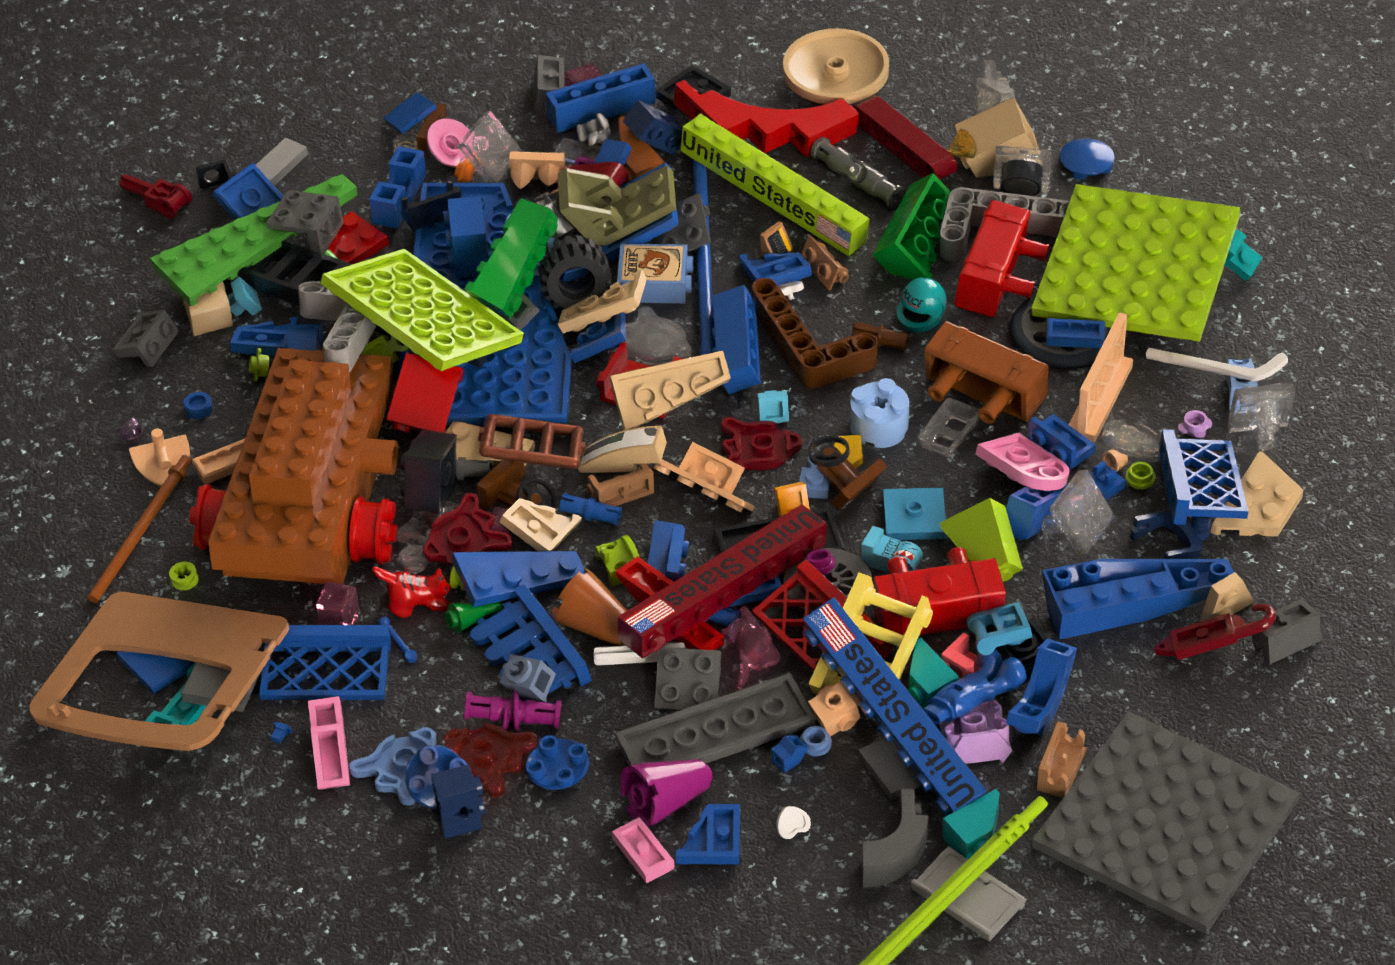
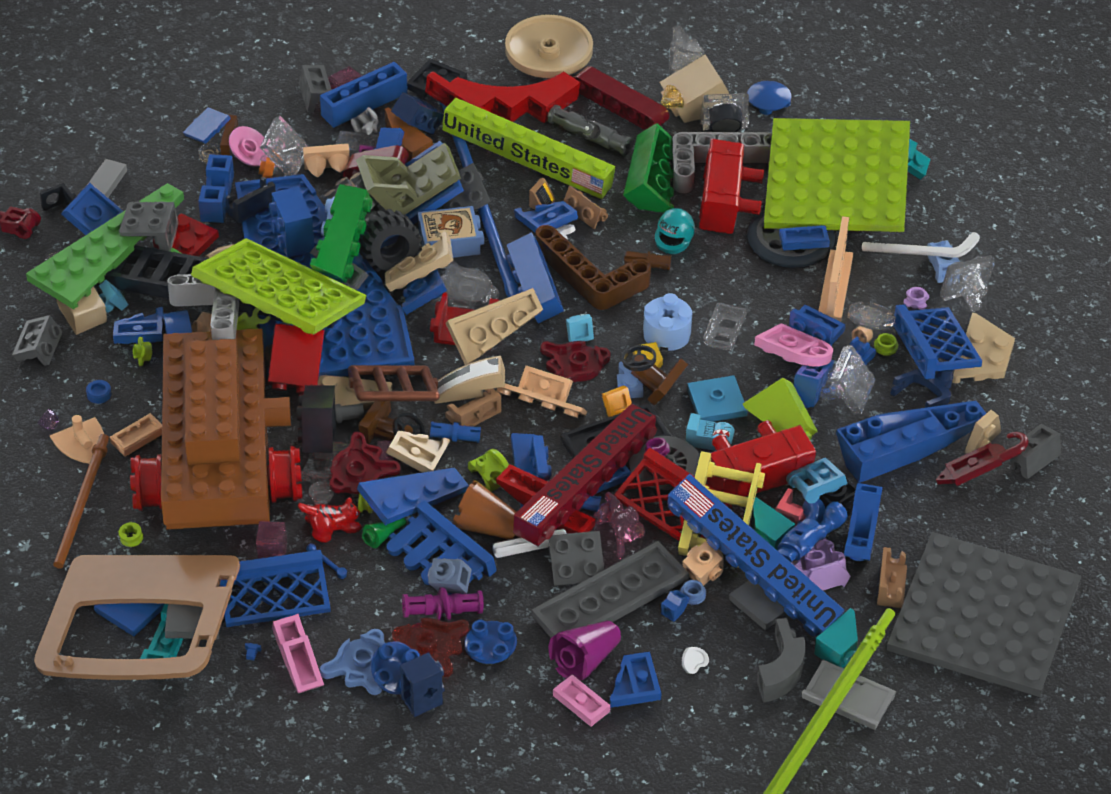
camera: 15 degrees left, 0 degrees up
(985, 372) = (743, 278): dark orange piece -> none

